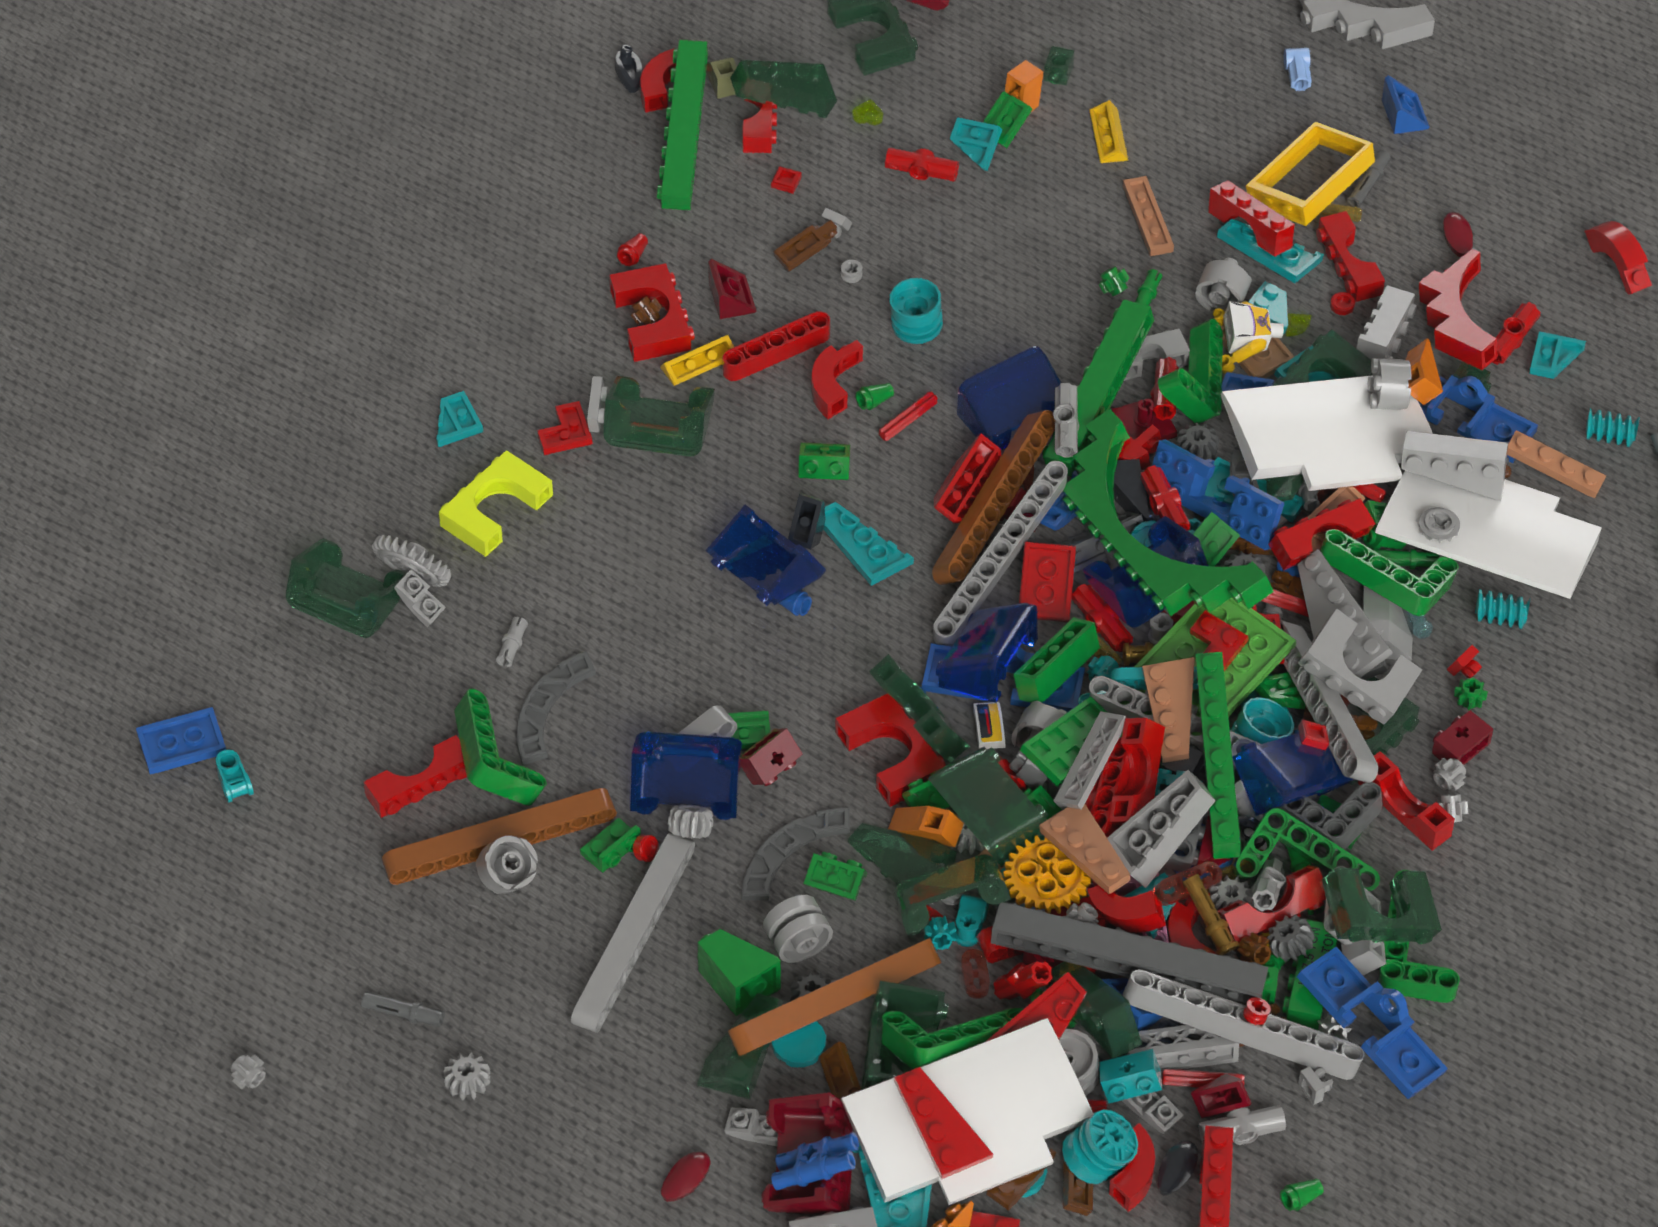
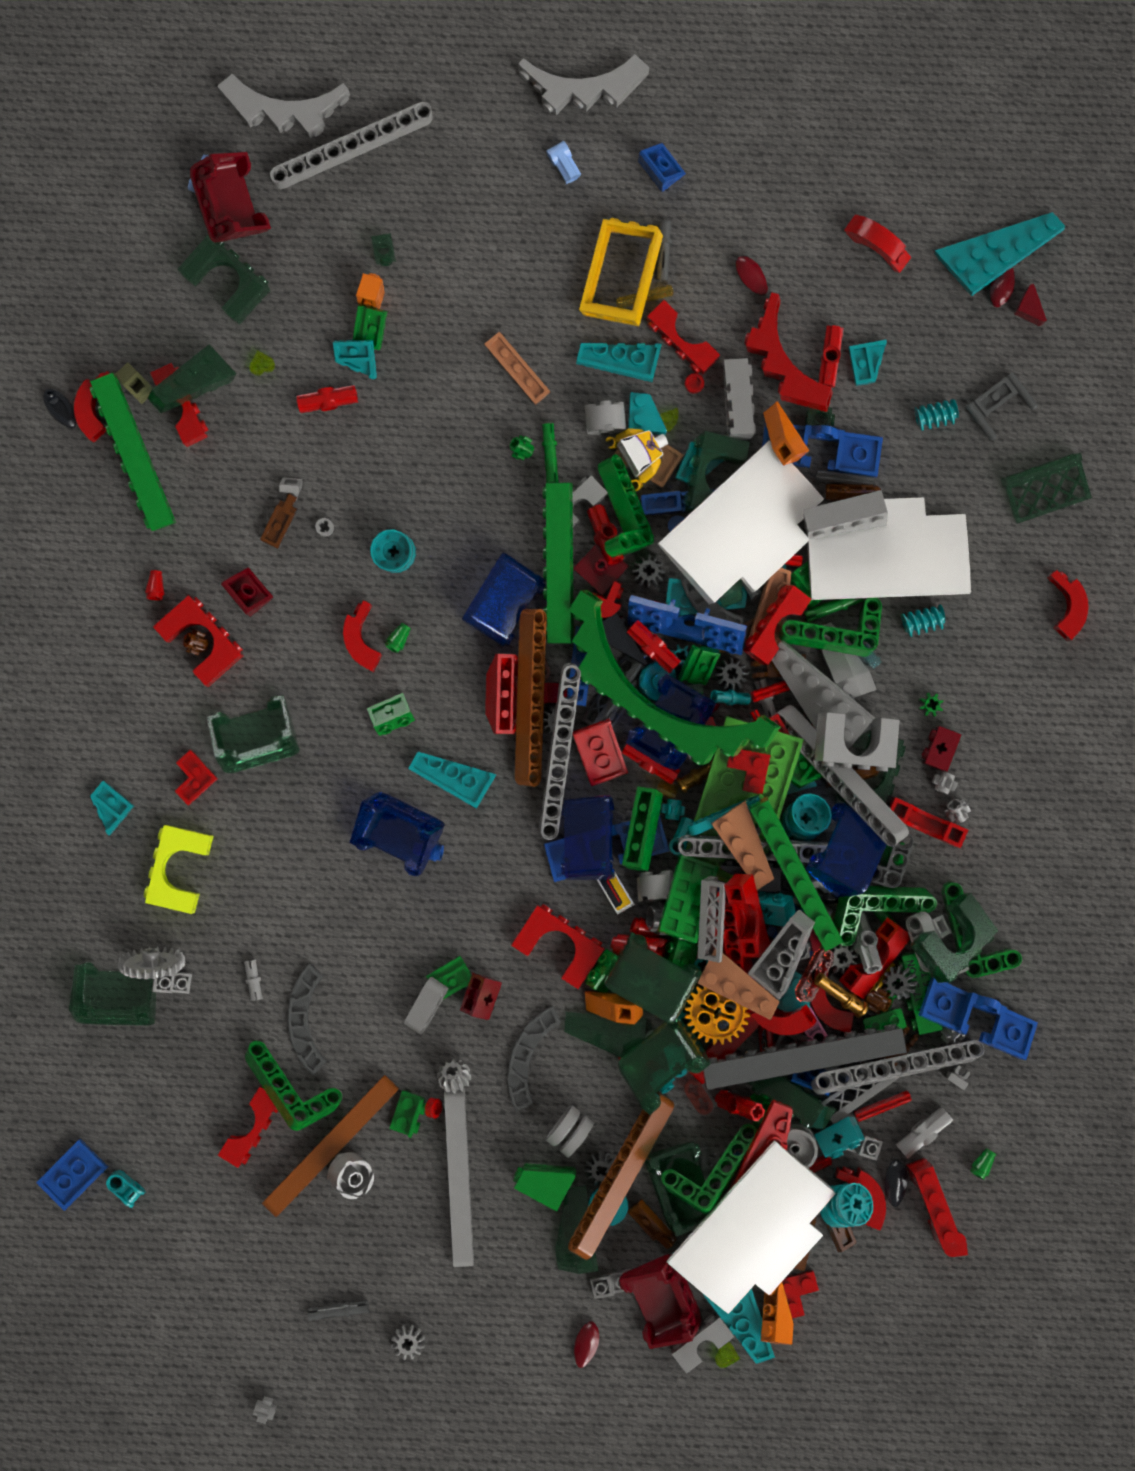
camera: 25 degrees left, 35 degrees up
(597, 400) = (207, 754): light grey wing -> none
(685, 772) = (429, 1039): clear blue windscreen -> none
(697, 361) = (255, 664): yellow slope -> none
(776, 346) = (296, 633): red beam -> none
(786, 179) = (233, 460): red tile -> none
(807, 522) = (410, 789): black slope -> none
(815, 1161) = (671, 1321): blue pin -> none
(835, 876) = (570, 1066): green bracket -> none
(907, 416) = (430, 643): red axle -> none
(929, 719) = (589, 920): clear green arch -> none
(943, 1130) = (749, 1259): red wing -> none
(1066, 420) = (559, 625): light grey piece -> none
(1083, 913) = (756, 1036): light grey gear -> none
(1108, 133) = (450, 296): yellow slope -> none
(1220, 1096) = (903, 1119): dark red slope -> none
(1256, 1011) = (903, 1066): red bush -> none
(1271, 229) = (614, 346): red arch -> none
(1313, 735) = (851, 819): red tile -> none
(1389, 384) = (774, 472): light grey brick -> none
(1442, 517) = (865, 576): light grey gear -> none
(1466, 663) = (916, 679): red tile -> none
(1555, 464) = (908, 468): nougat plate -> none

